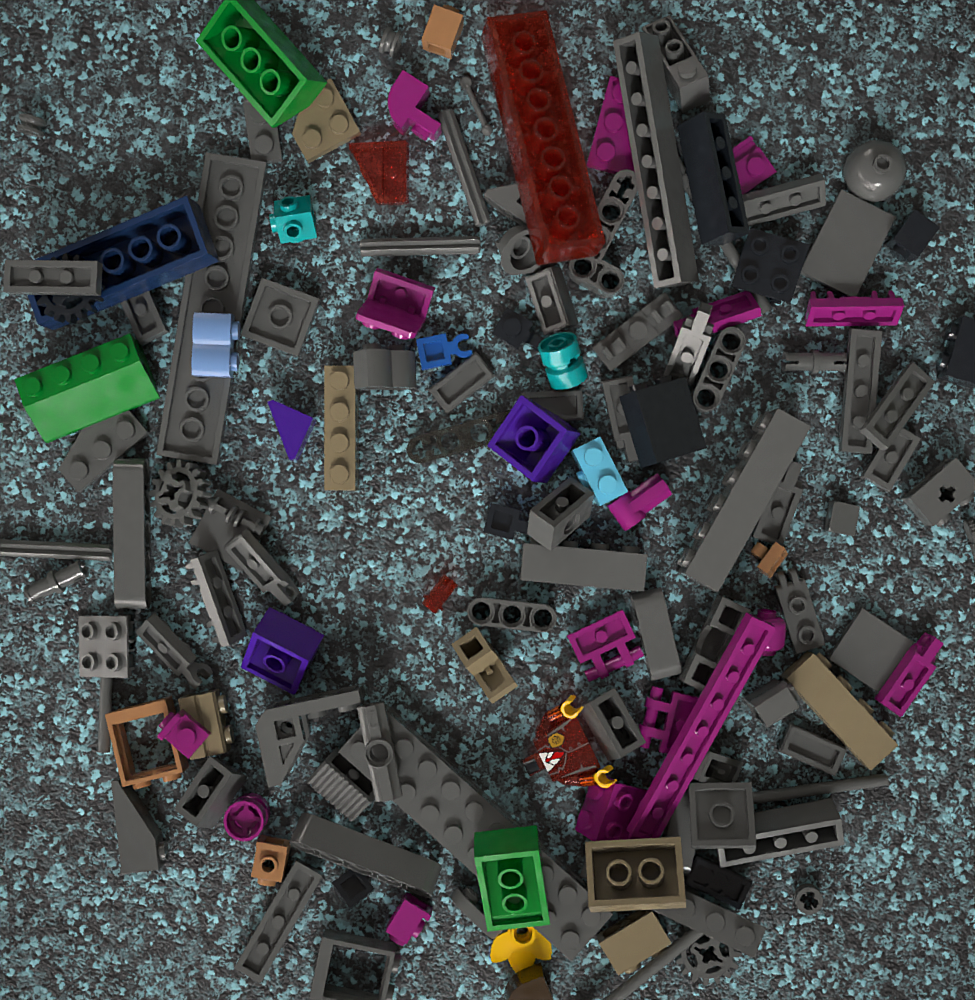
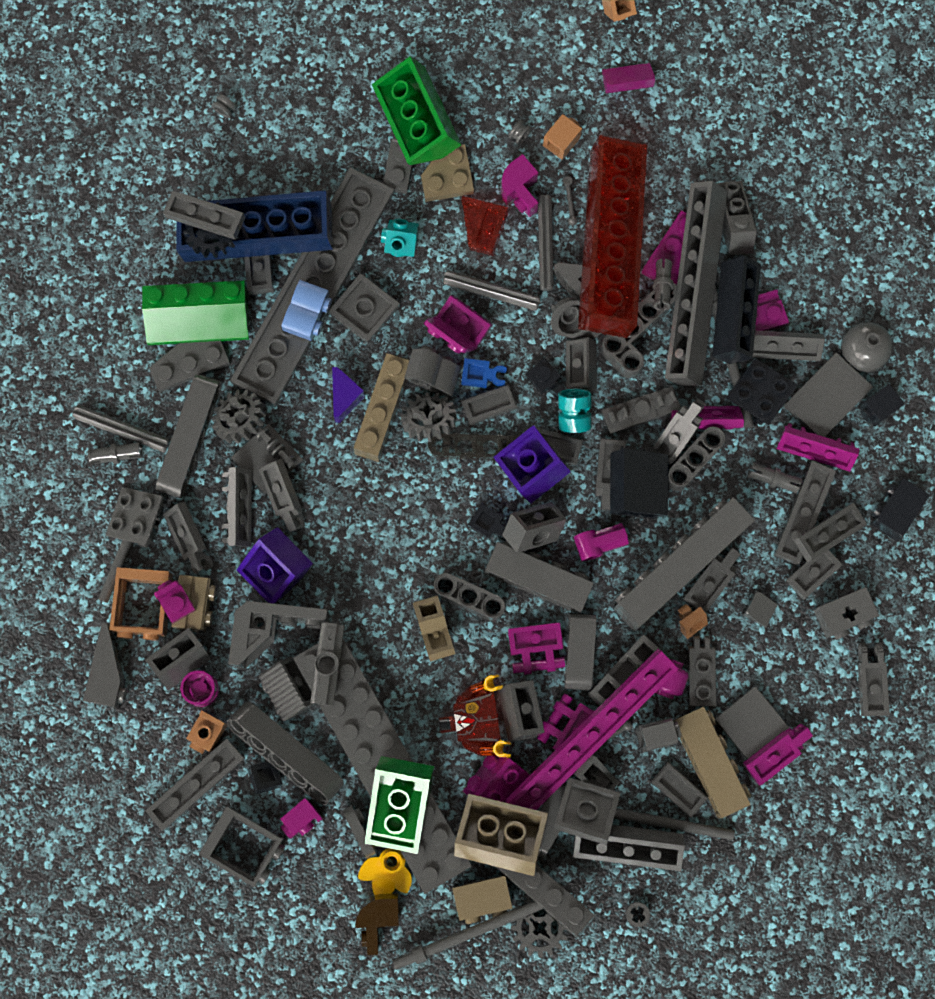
camera: 10 degrees right, 10 degrees down
(397, 423) = (428, 417): none -> dark grey gear
(439, 594) = (416, 563): clear red pin -> none
(598, 471) = (575, 506): medium azure brick -> none
(618, 177) = (662, 284): none -> dark grey pin
(718, 881) = (566, 872): black plate -> none

